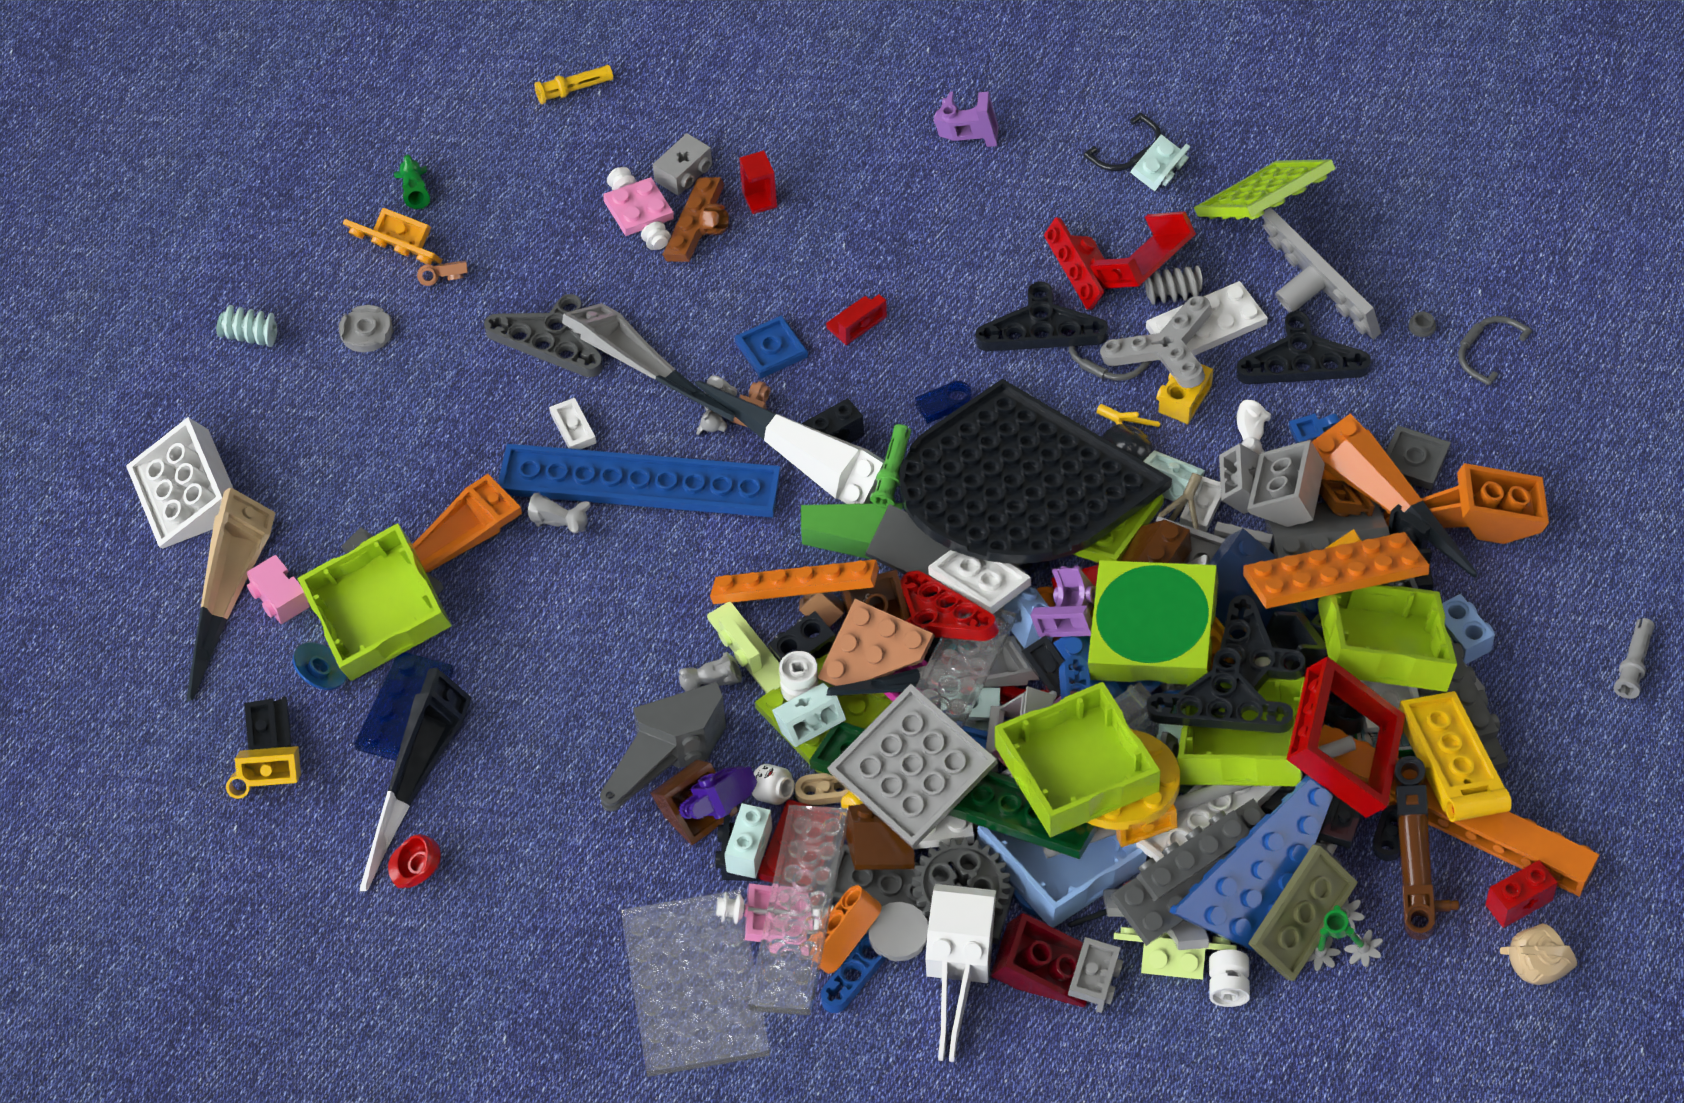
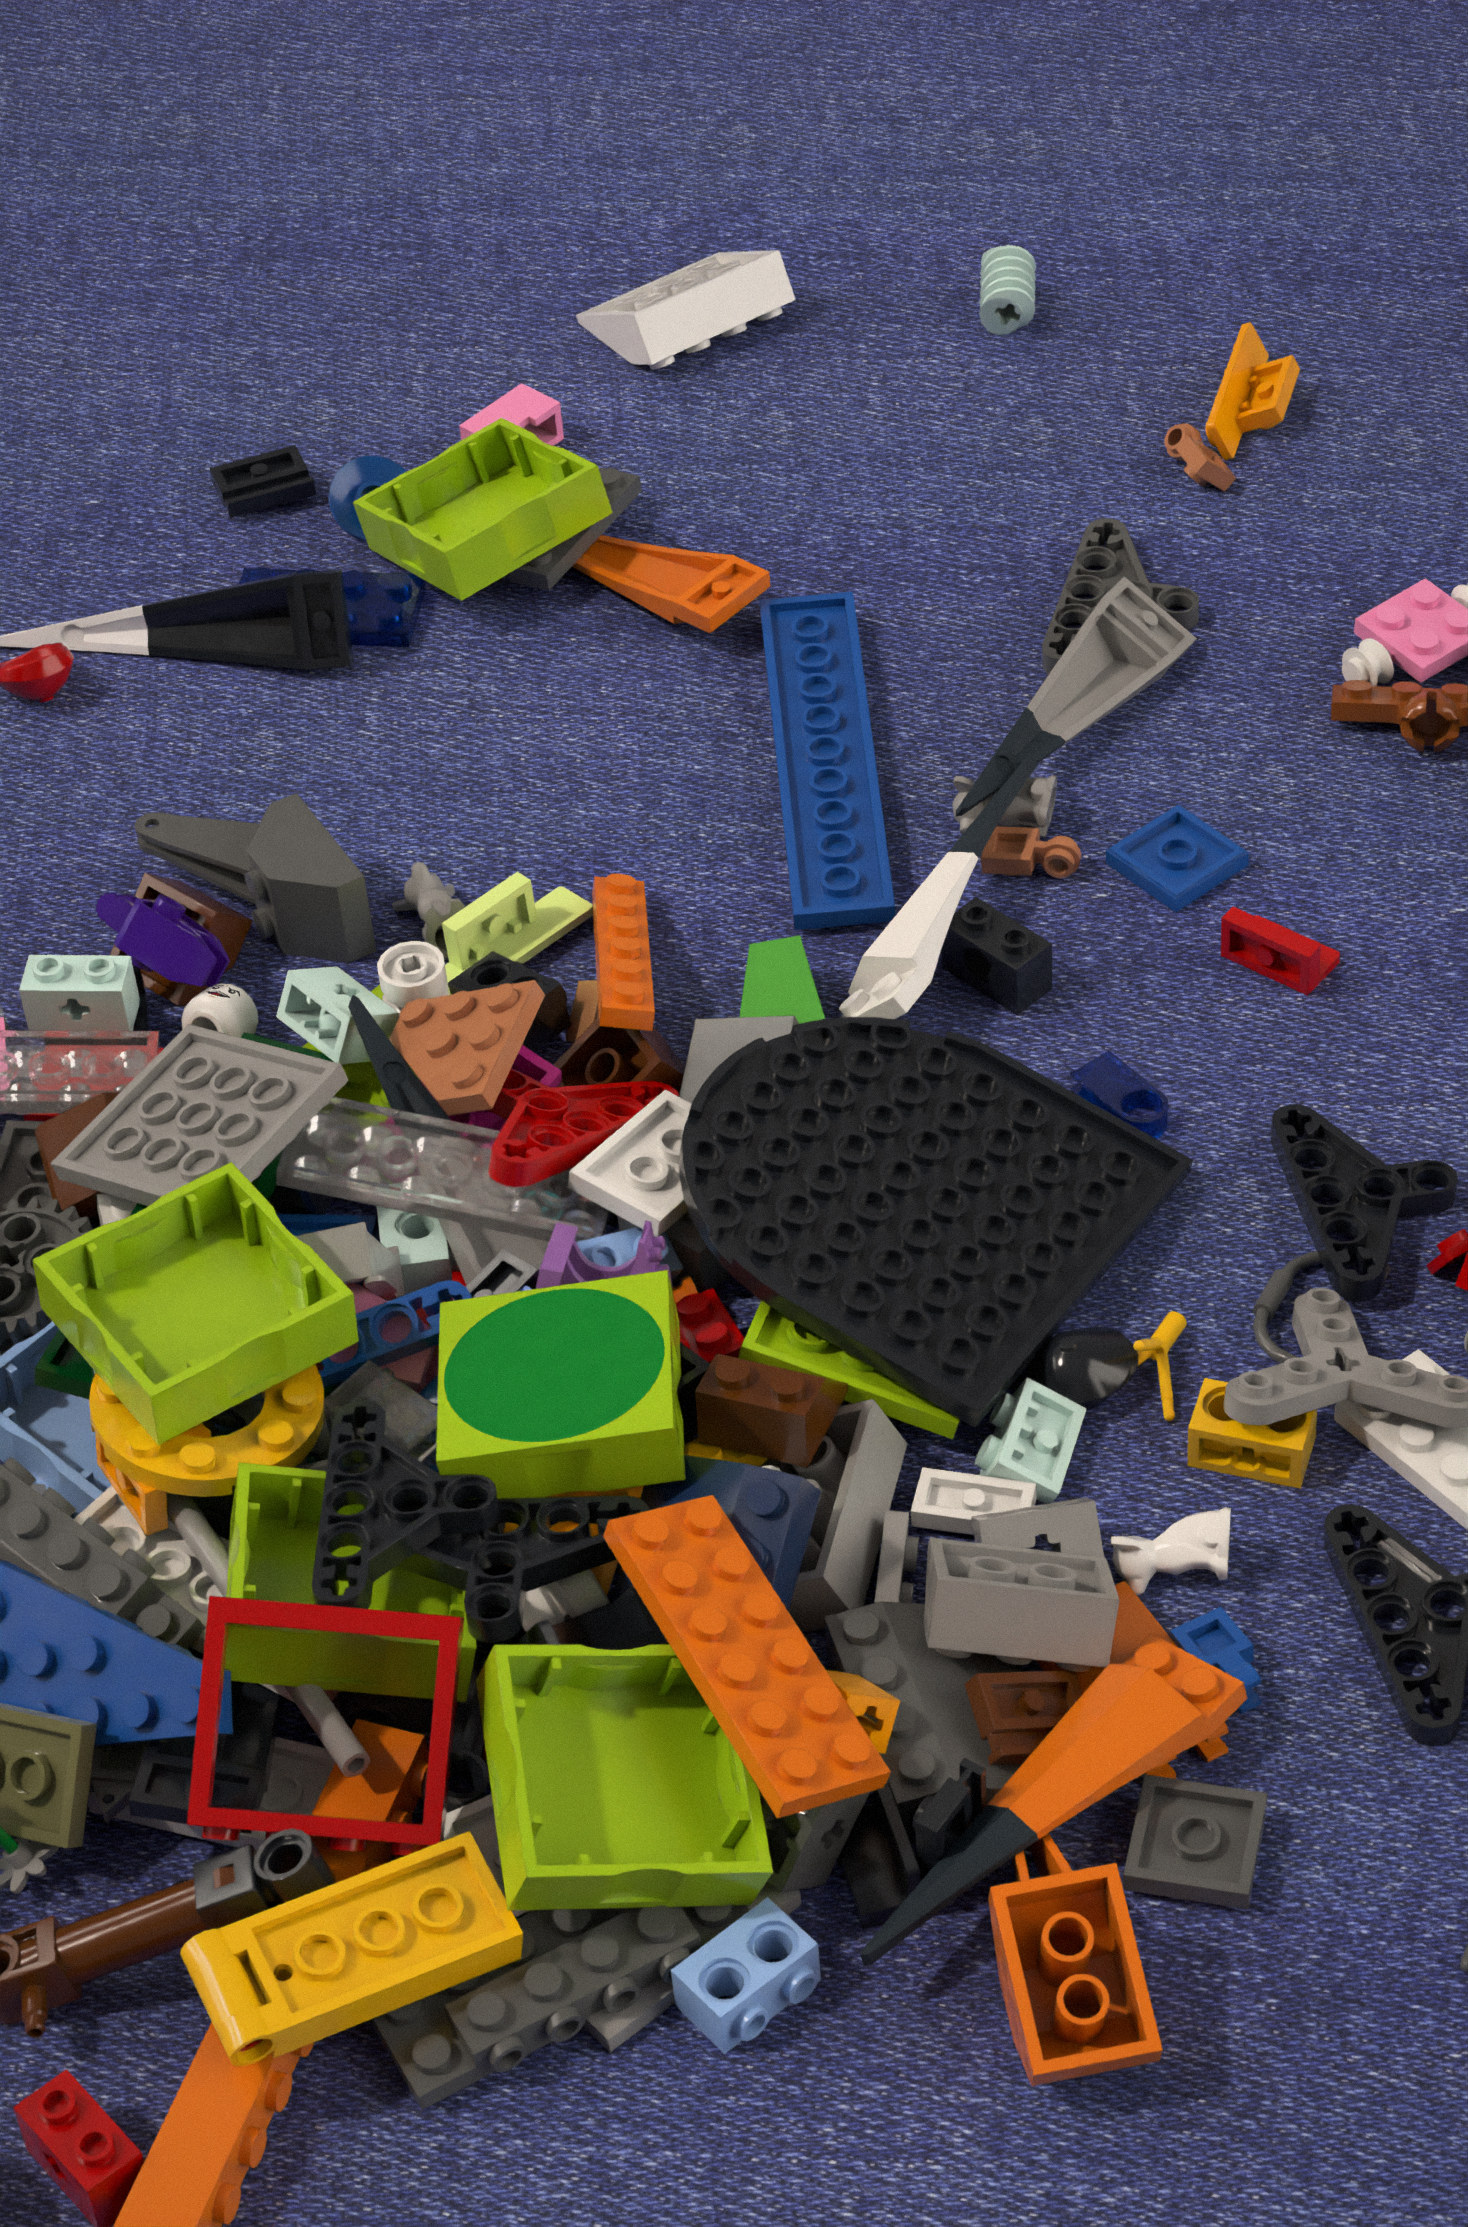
camera: 80 degrees right, 10 degrees down
(235, 545) = (581, 366): tan plate -> none
(265, 768) = (176, 486): yellow hinge -> none
(365, 328) = (1057, 411): light grey tile -> none
(415, 193) = (1362, 387): green animal -> none
(544, 511) = (727, 659): light grey animal -> none
(572, 424) = (919, 659): white plate -> none
(889, 475) = (918, 1009): bright green pin -> none
(1188, 496) = (960, 1458): dark tan plant -> none

